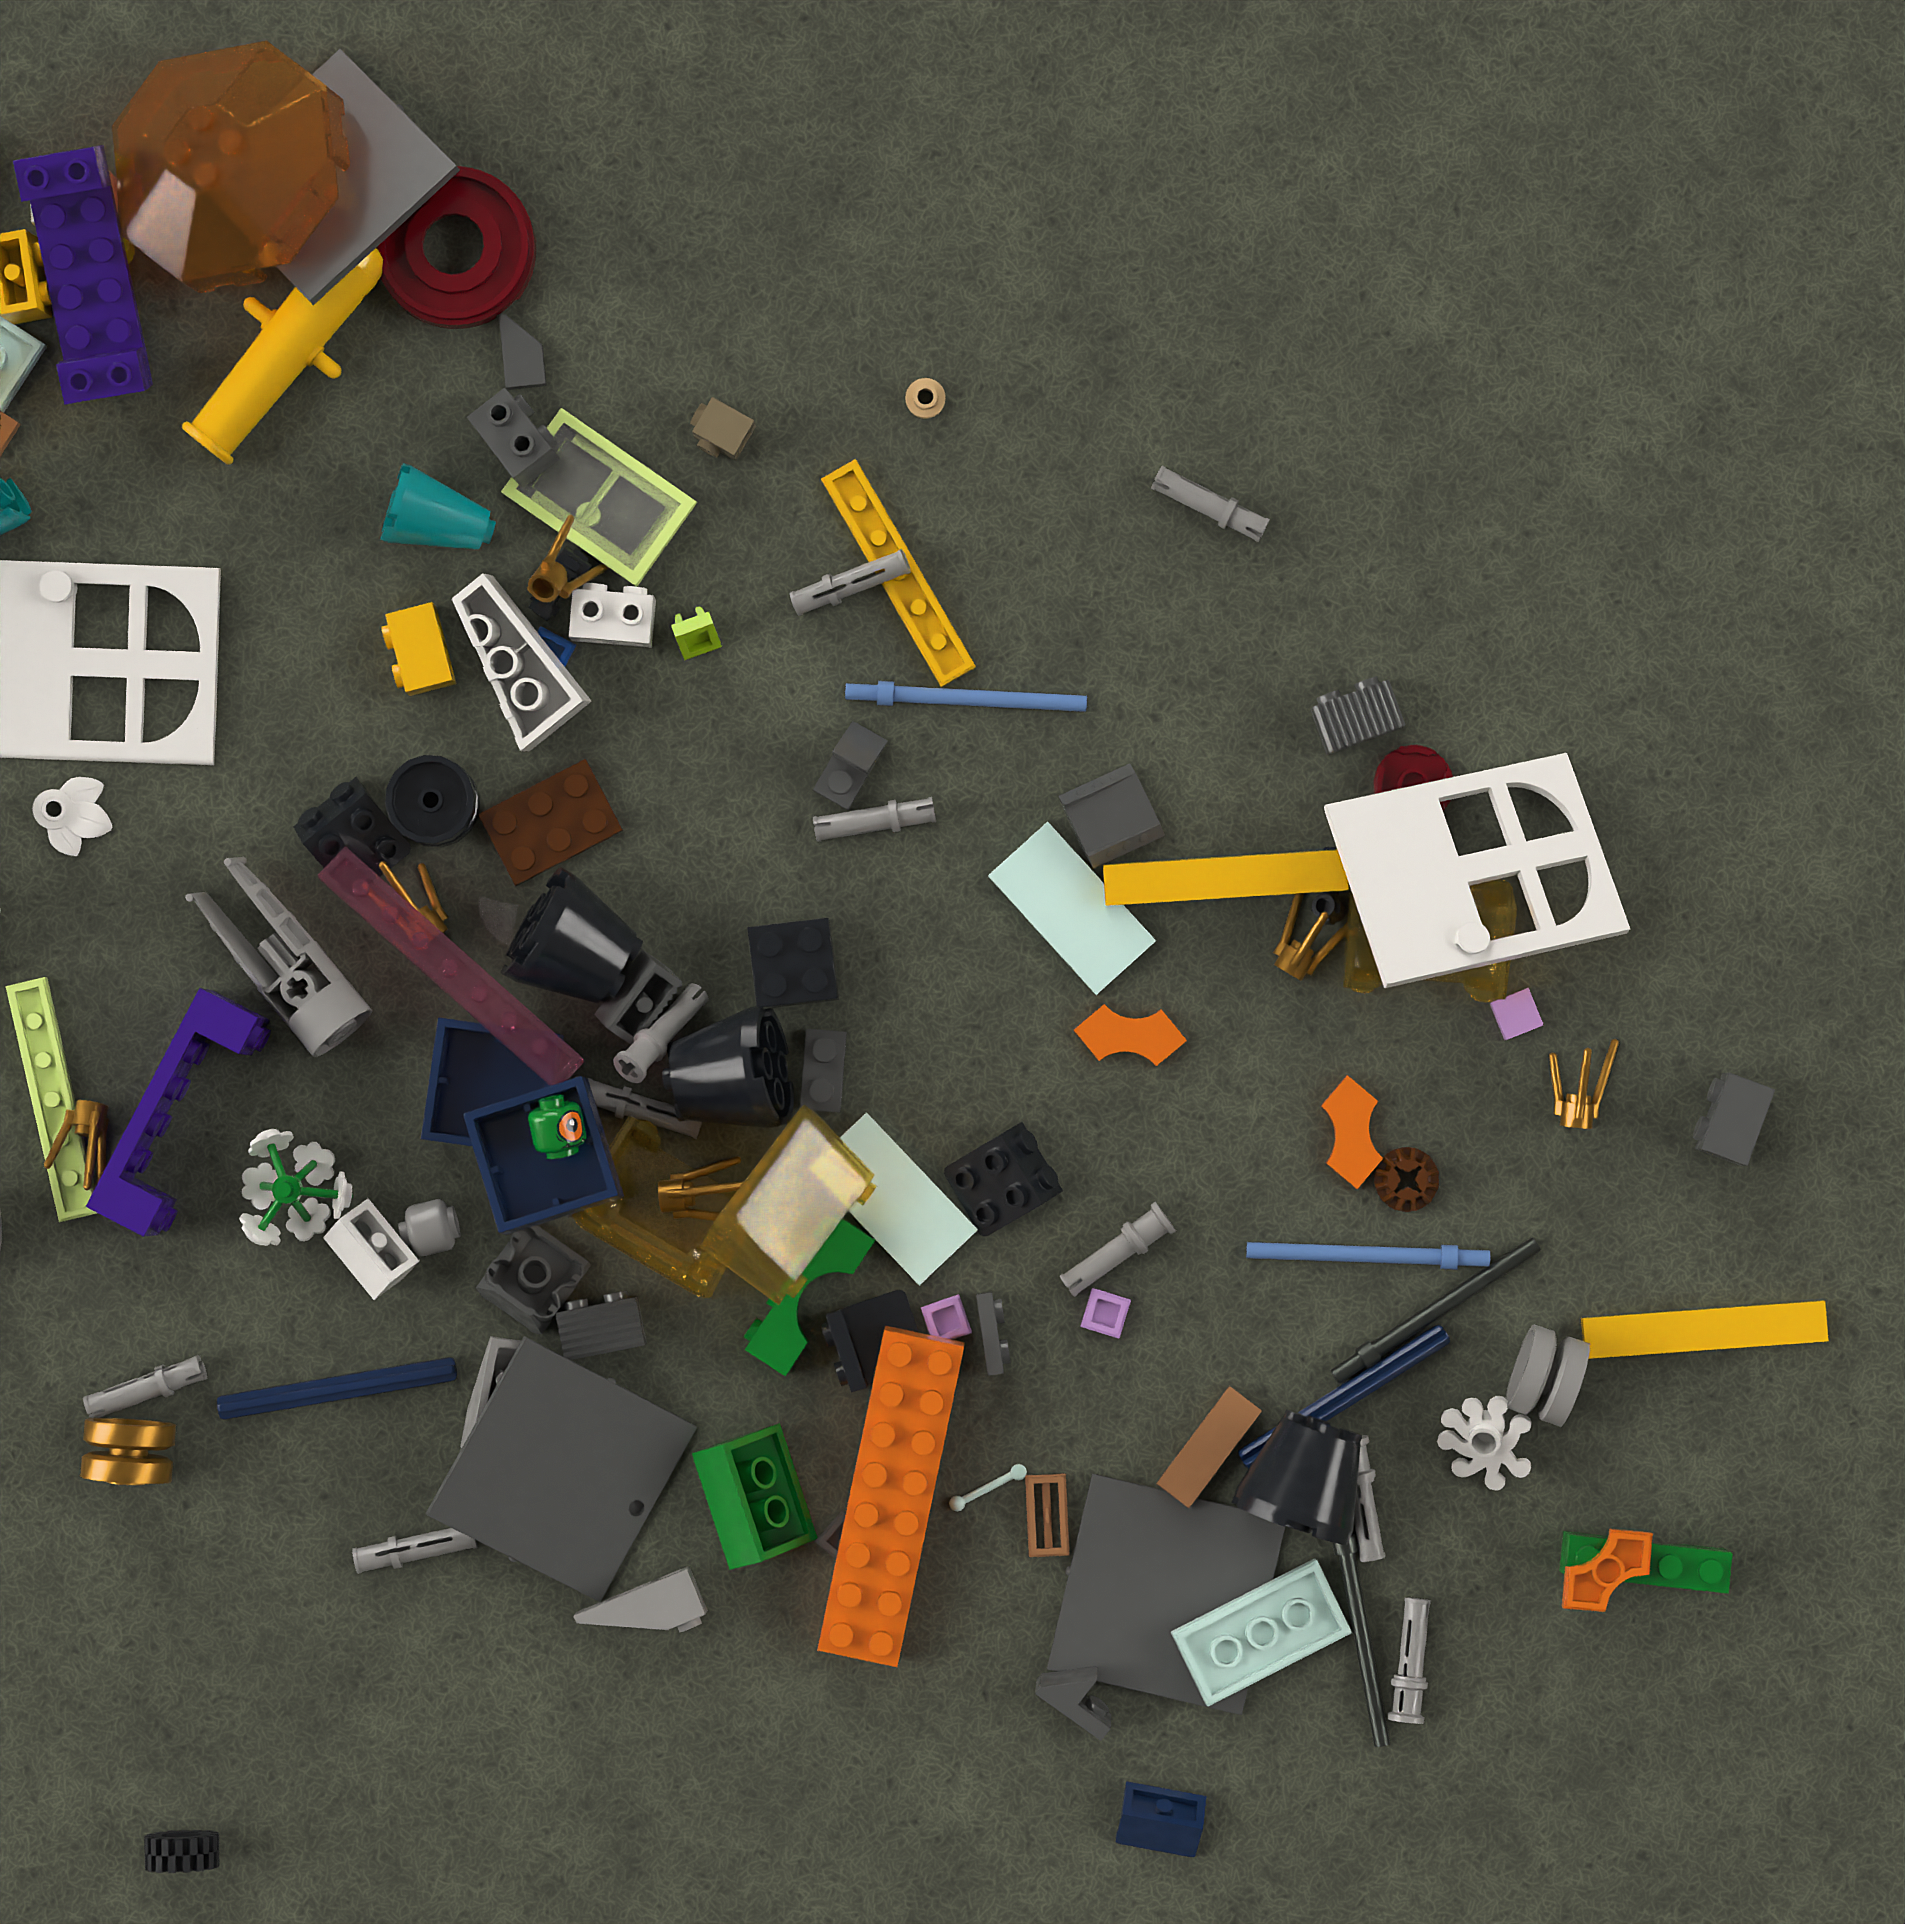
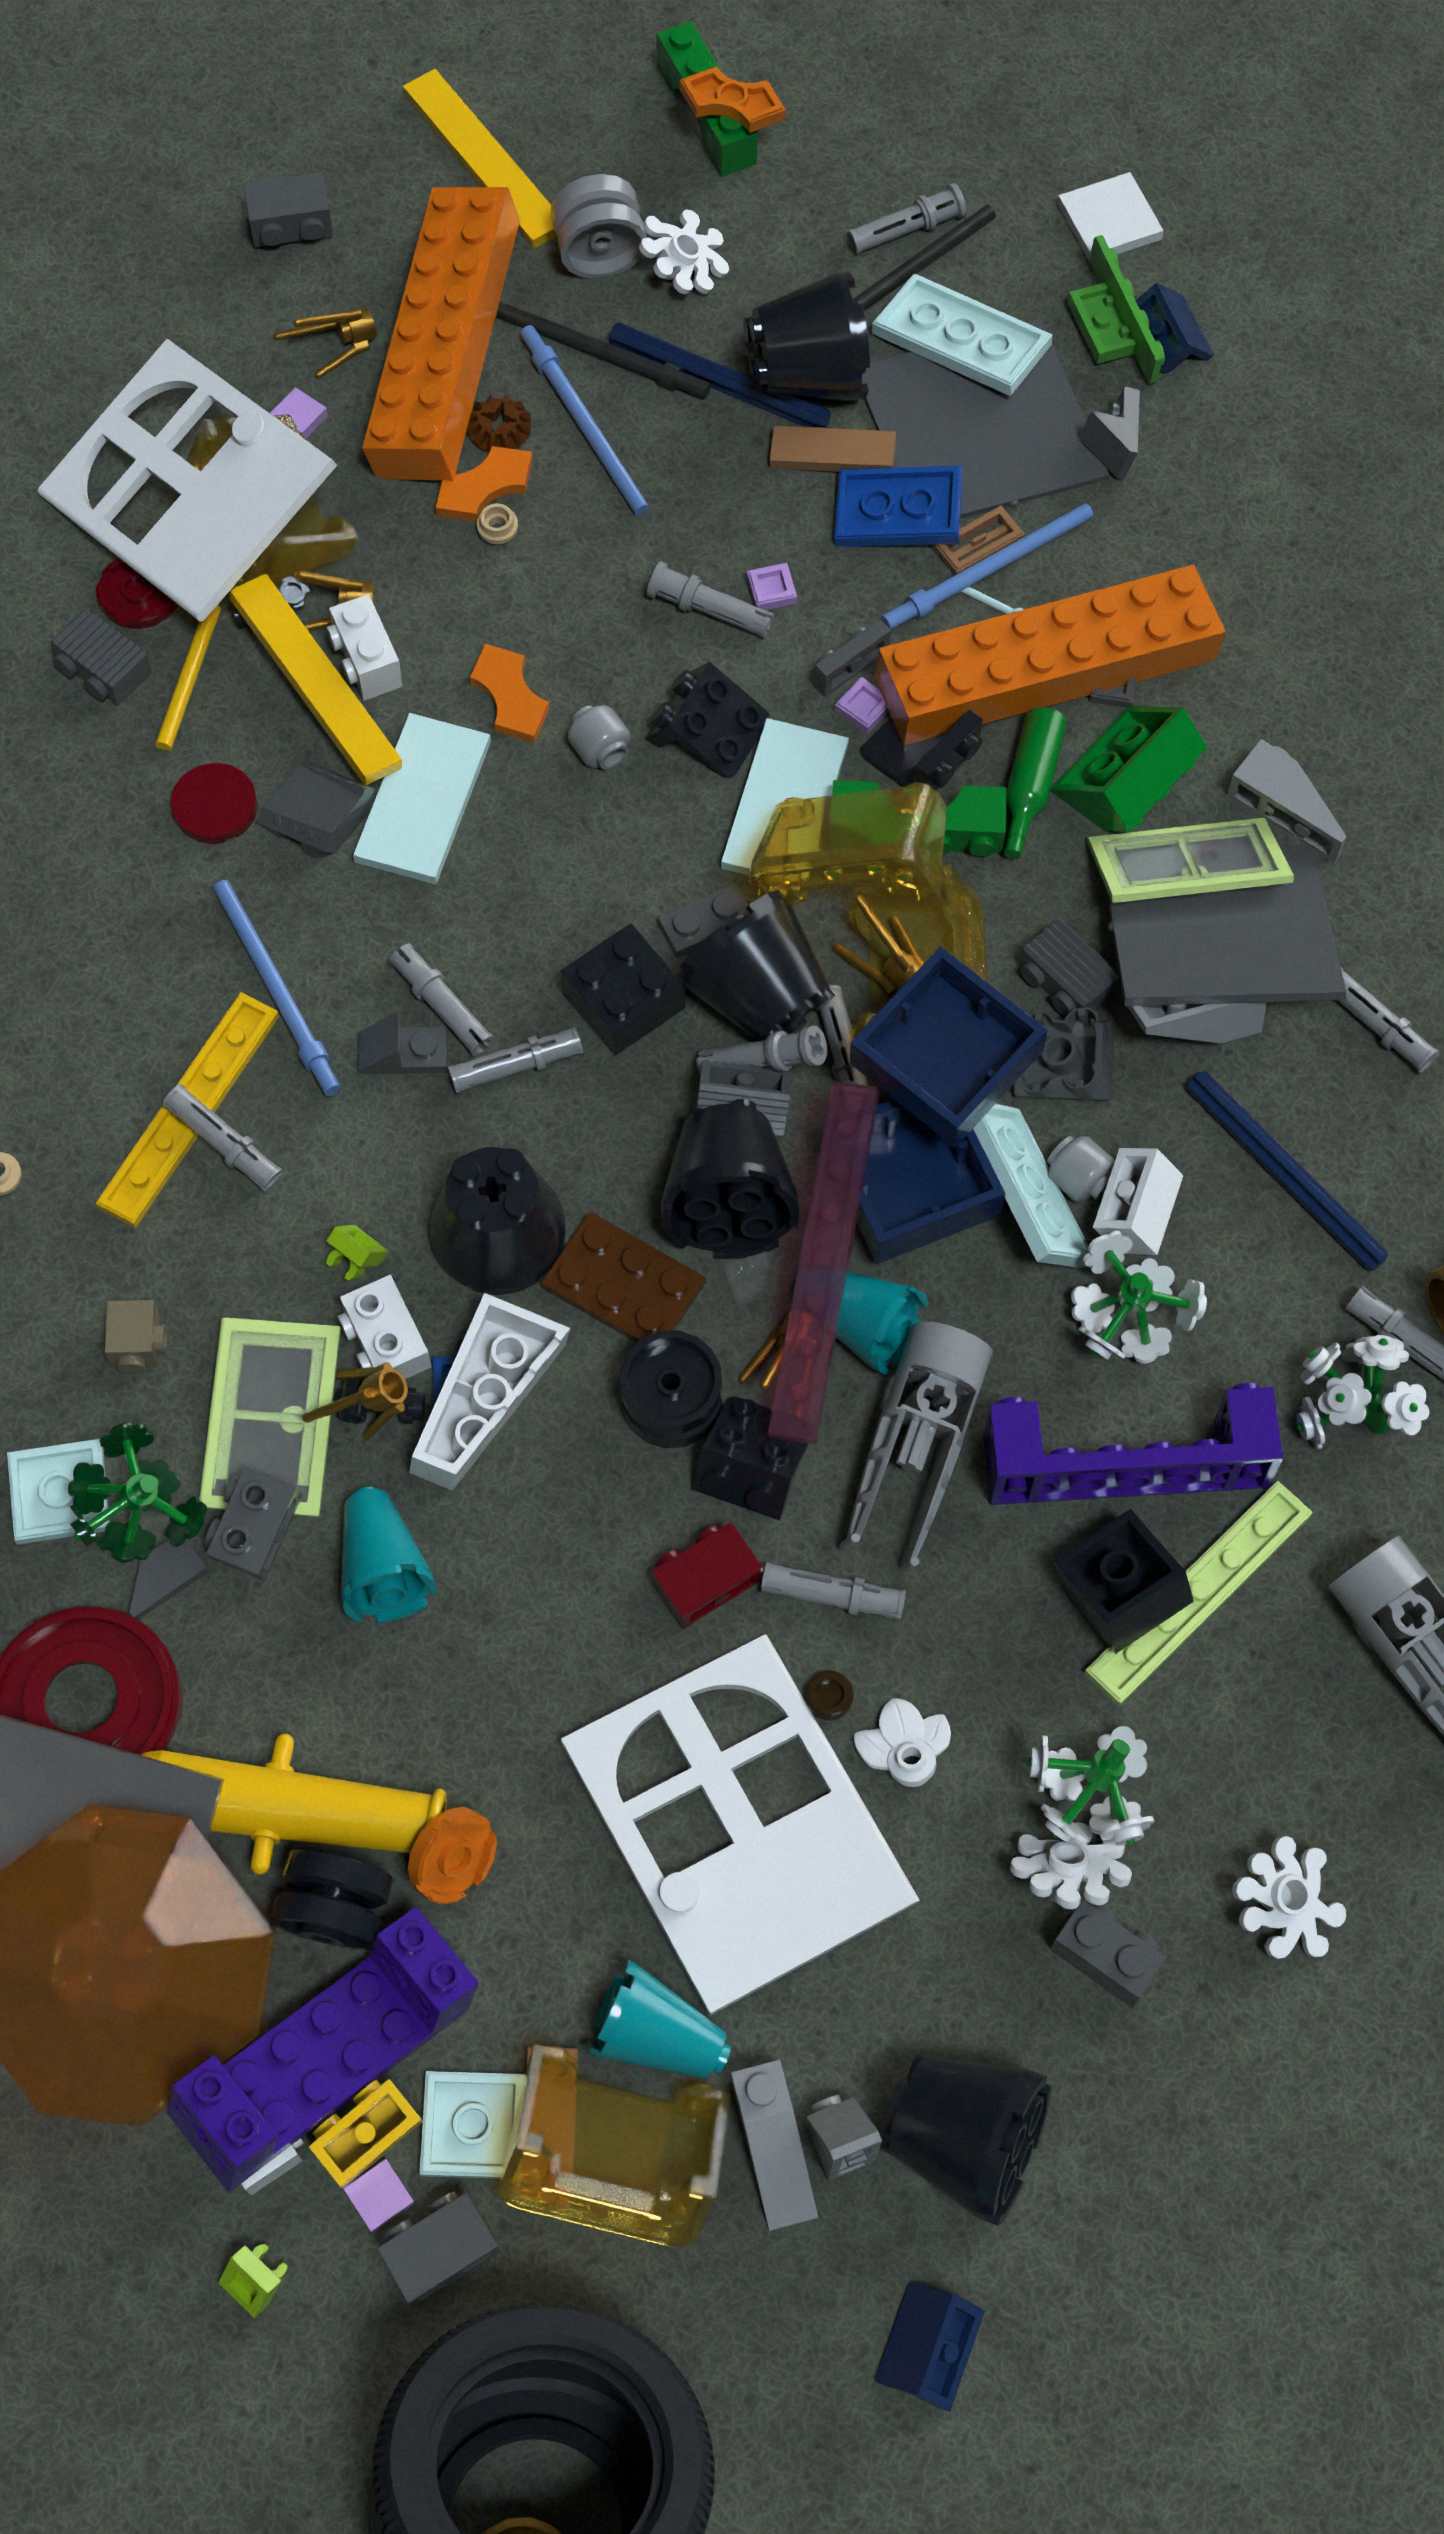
camera: 125 degrees left, 20 degrees down
(82, 1040) = (1123, 1581): none -> black brick
(90, 1122) = (1196, 1532): pearl gold plant -> none
(119, 1334) = (1355, 1403): none -> white plant
(140, 782) = (829, 1695): none -> dark brown tile
(176, 441) = (452, 1855): none -> orange tile
(191, 338) = (331, 1899): none -> black wheel
(212, 831) = (833, 1591): none -> light grey pin
(279, 744) = (706, 1574): none -> dark red brick
(396, 989) = (878, 1319): none -> teal cone
(418, 1170) = (1029, 1190): none -> light aqua tile
(419, 649) = (526, 1494): yellow brick -> none
(557, 1127) = (913, 1033): green head -> none
(562, 348) = (146, 1488): none -> dark green plant
(634, 312) = (40, 1489): none -> light aqua tile
(636, 1486) = (1189, 860): none -> clear door
(662, 777) = (498, 1243): none -> black cone
(777, 894) = (520, 1058): none -> light grey pin
(793, 1412) = (1033, 772): none -> green piece
(1013, 1427) = (923, 602): none -> medium blue bar
(1040, 1081) = (599, 737): none -> light grey head
(1117, 1466) = (899, 506): none -> blue tile
(1166, 738) = (214, 803): none -> dark red tile
(1200, 1771) = (1111, 316): none -> bright green bracket
(1236, 937) = (365, 646): none -> white brick
(1286, 765) = (186, 681): none -> yellow bar
(1312, 1847) = (1112, 210): none -> white tile
(1314, 1114) = (495, 514): none -> tan plate
(1520, 1179) = (441, 334): none -> orange brick

